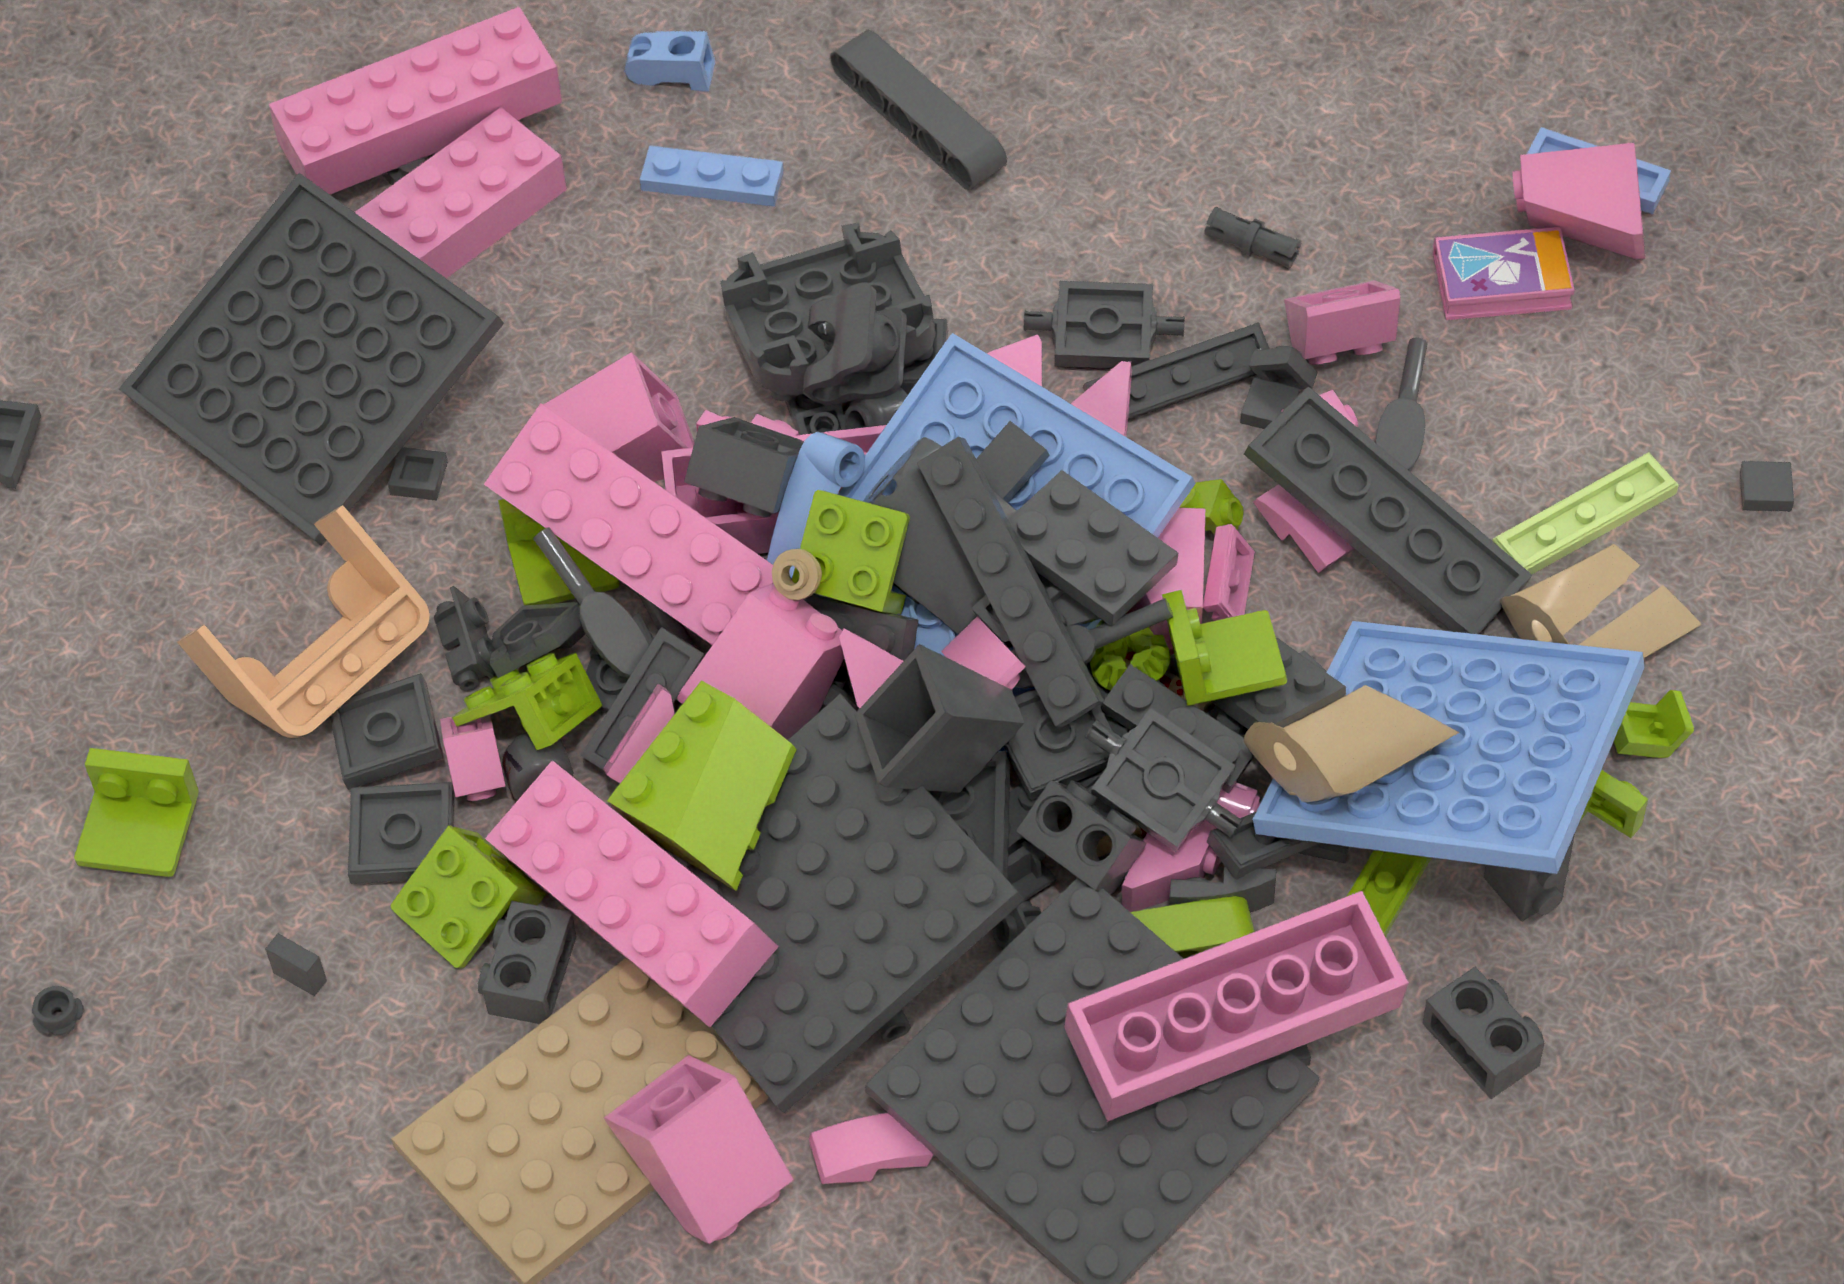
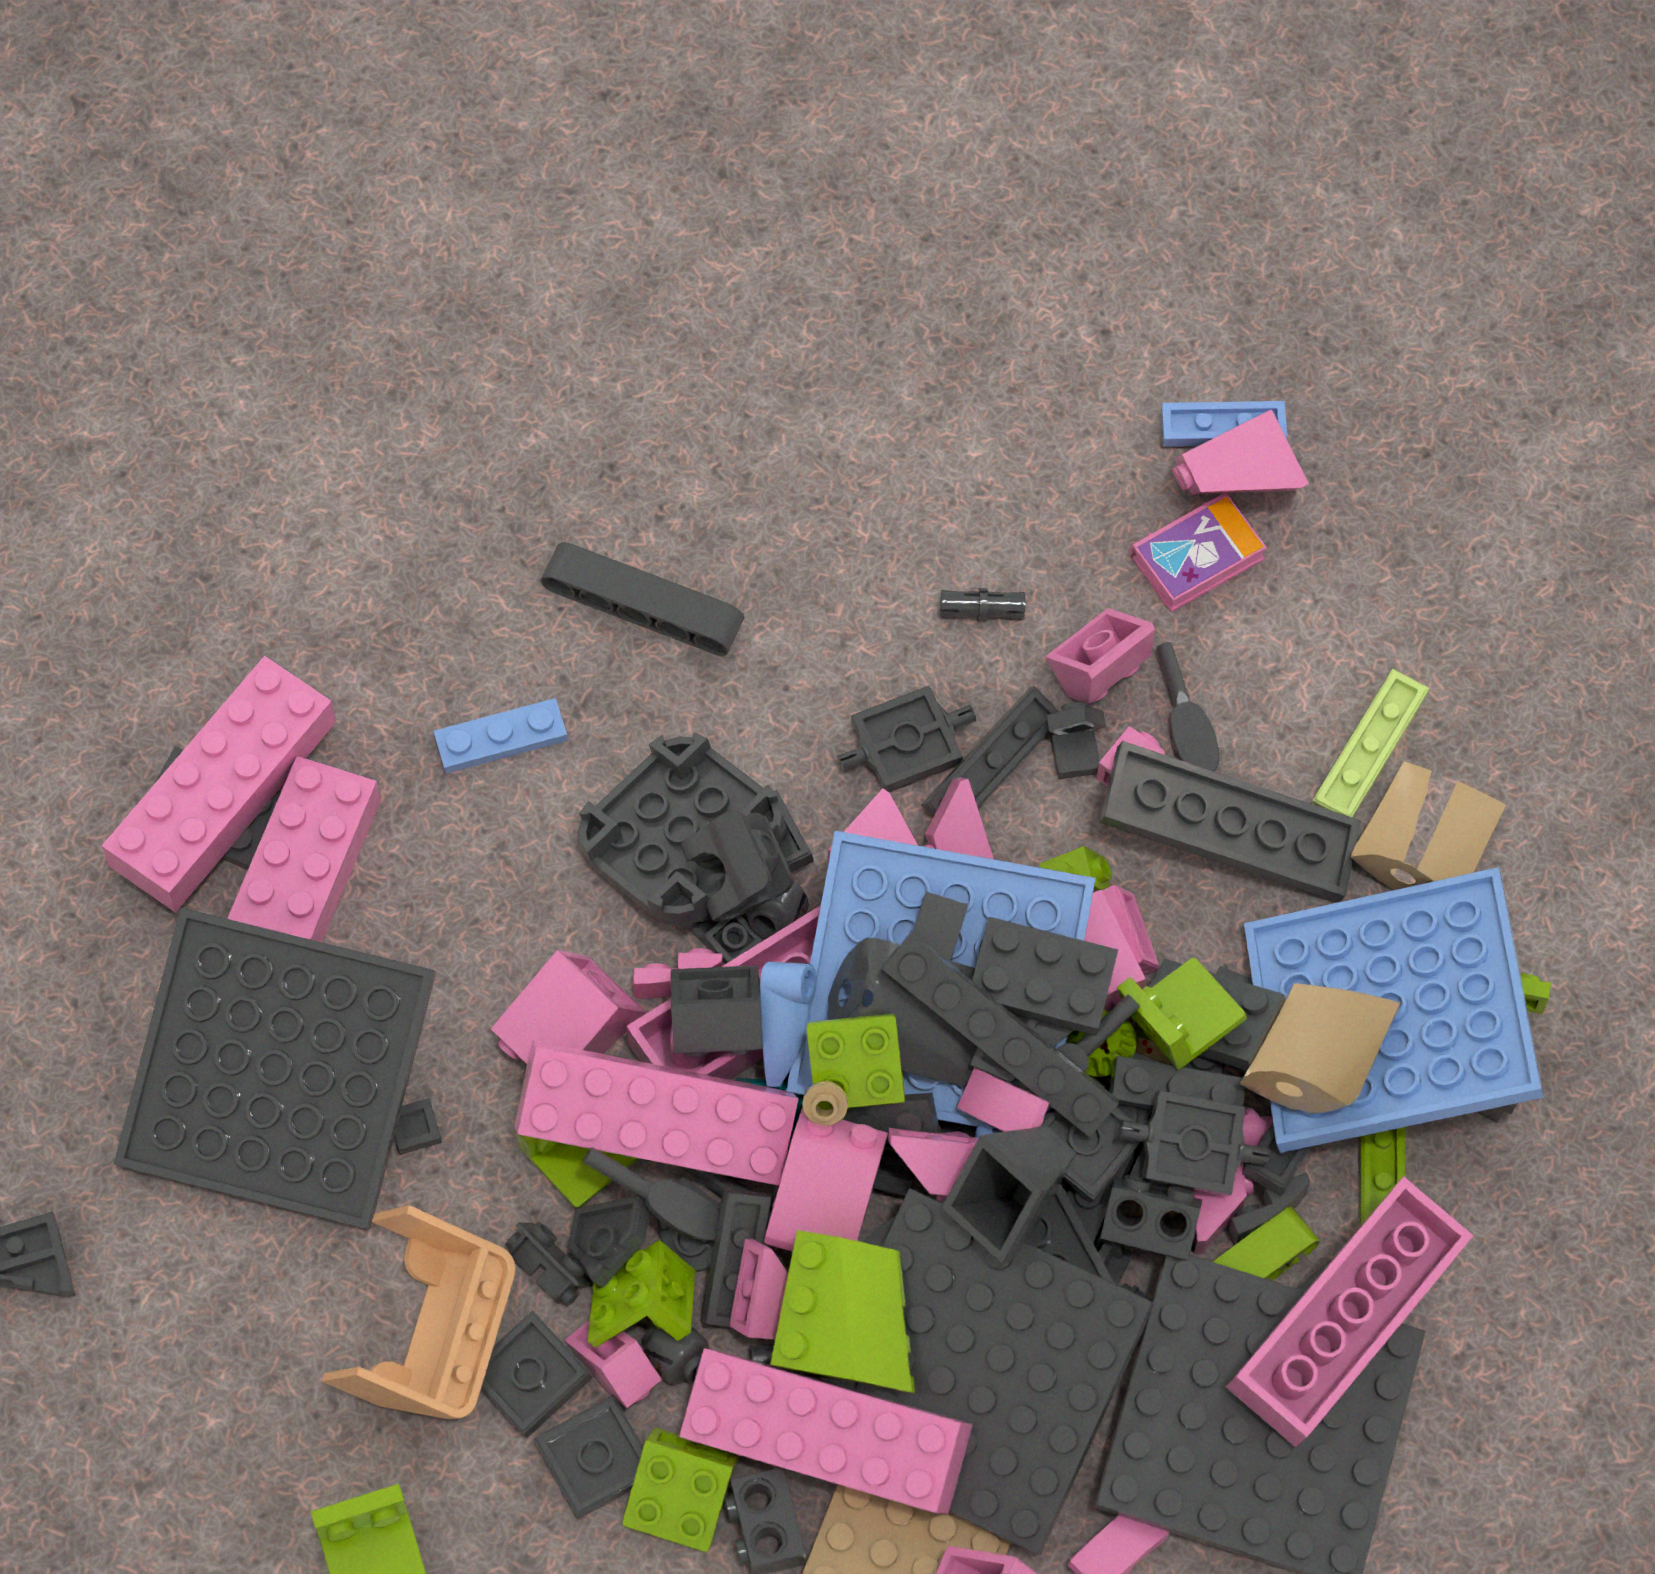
camera: 30 degrees left, 10 degrees up
(671, 58) = (403, 639): light blue leg -> none
(1312, 535) = (1152, 855): bright pink slope -> none
(1473, 1037) = (1518, 1243): dark grey brick -> none
(1656, 728) = (1526, 908): lime bracket -> none
(1766, 486) = (1494, 658): dark grey tile -> none

